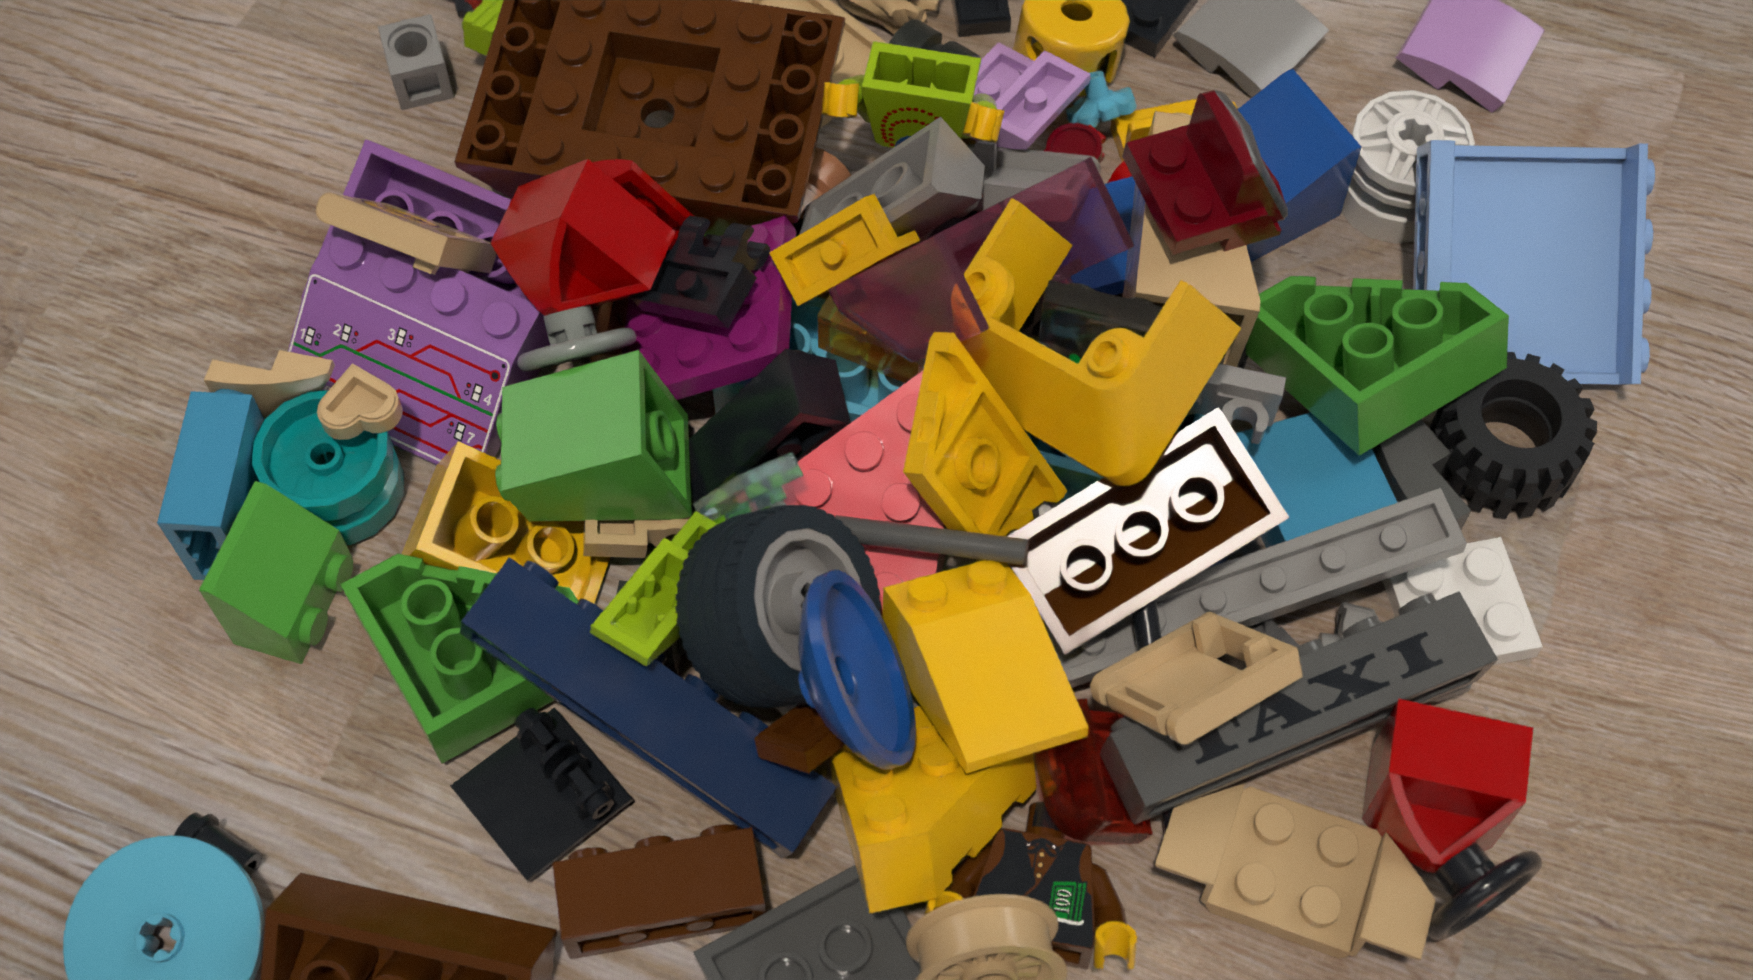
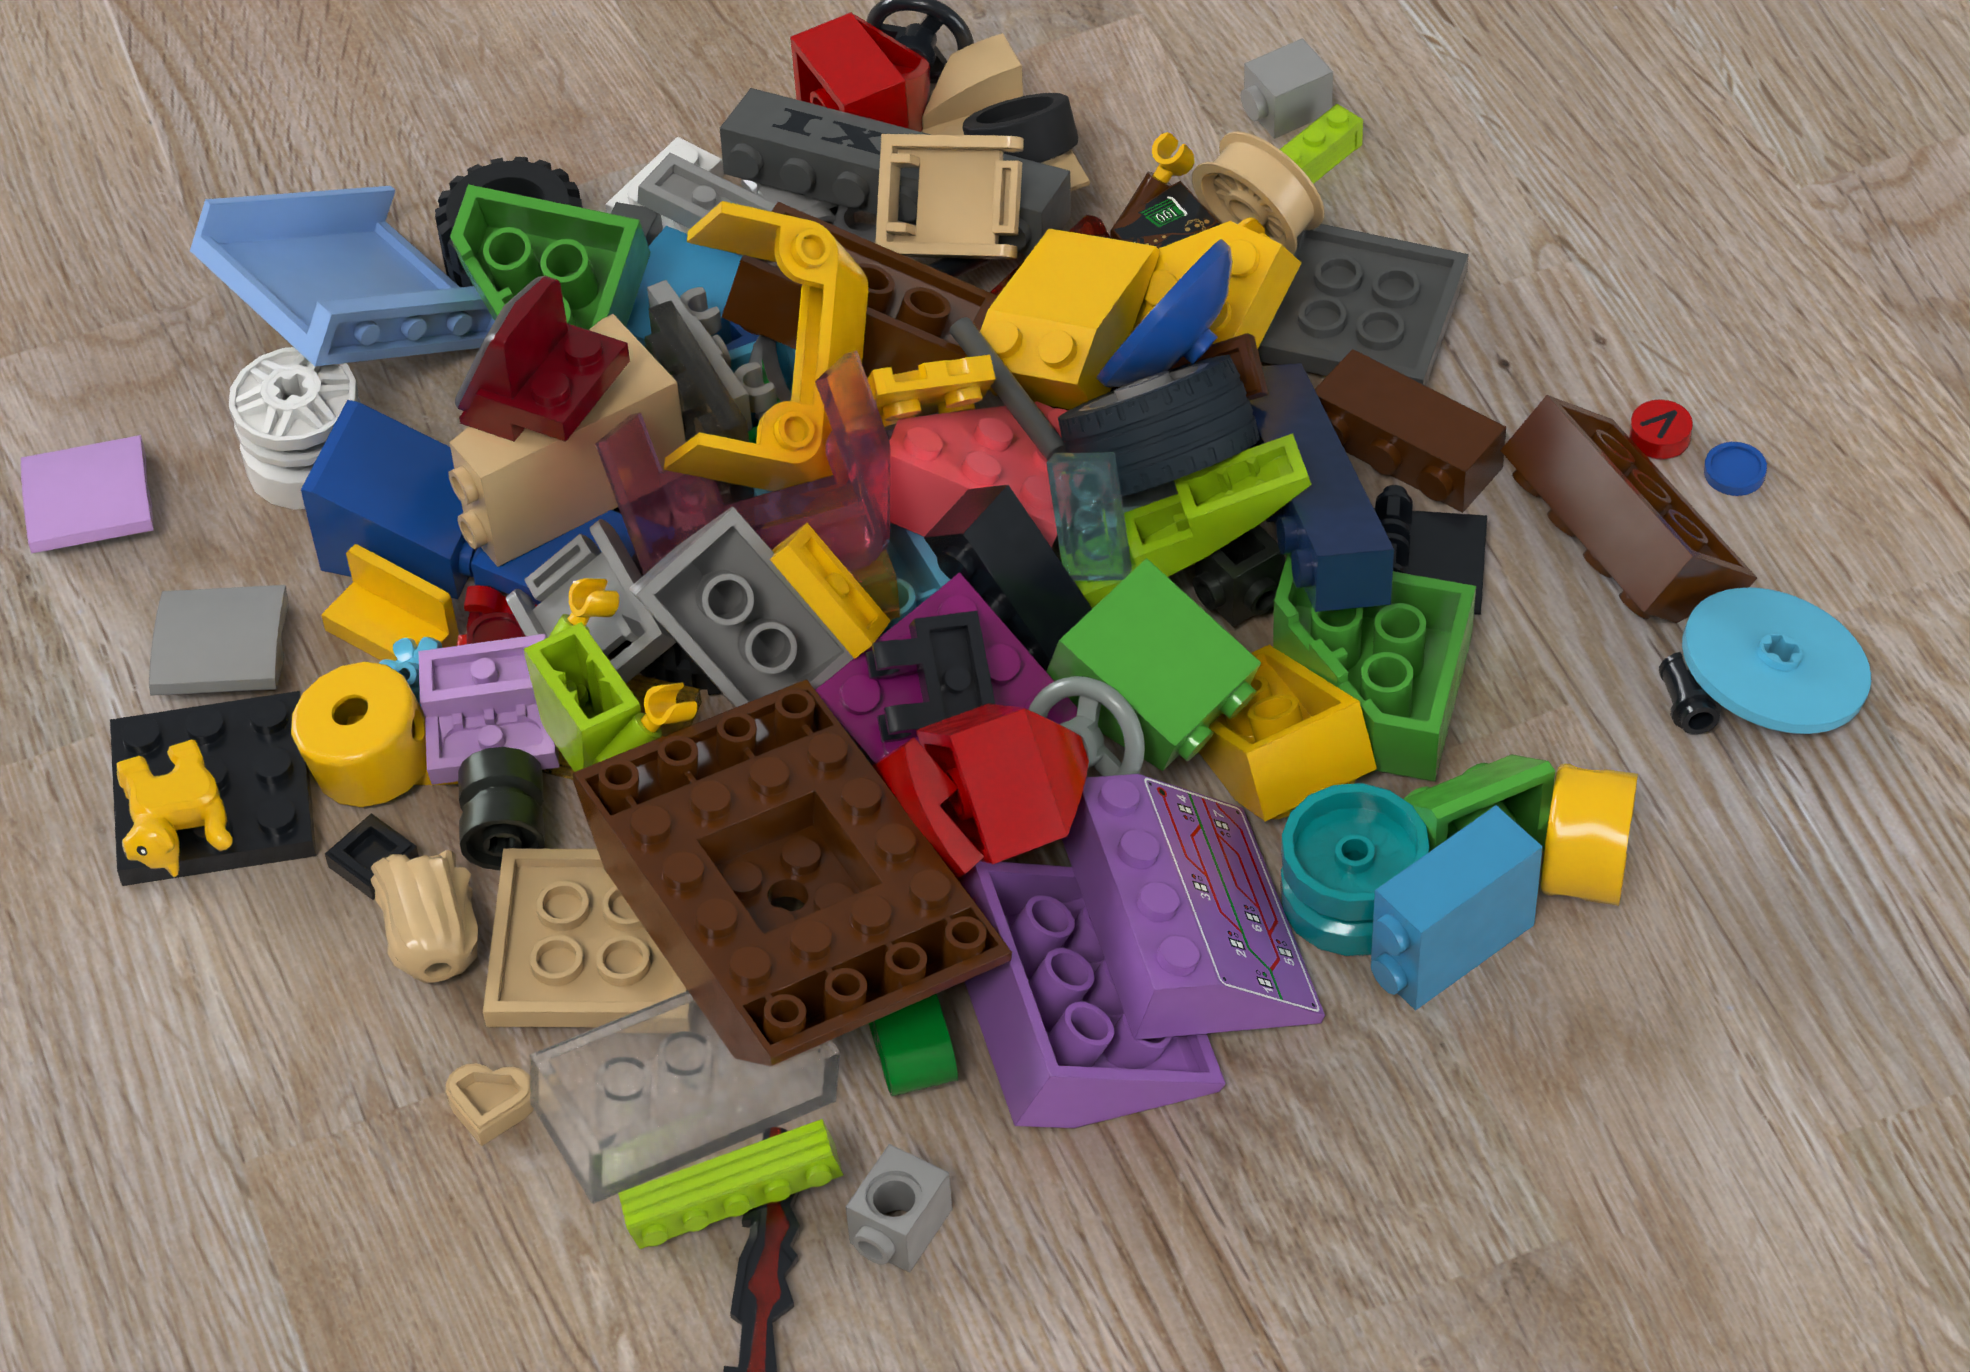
camera: 130 degrees left, 10 degrees down
(172, 626) = (1588, 834): none -> yellow piece
(289, 377) = (1349, 948): tan slope -> none
(359, 404) = (1294, 838): tan tile -> none
(426, 240) = (1112, 928): tan container -> none
(1304, 852) = (1040, 119): none -> black tyre

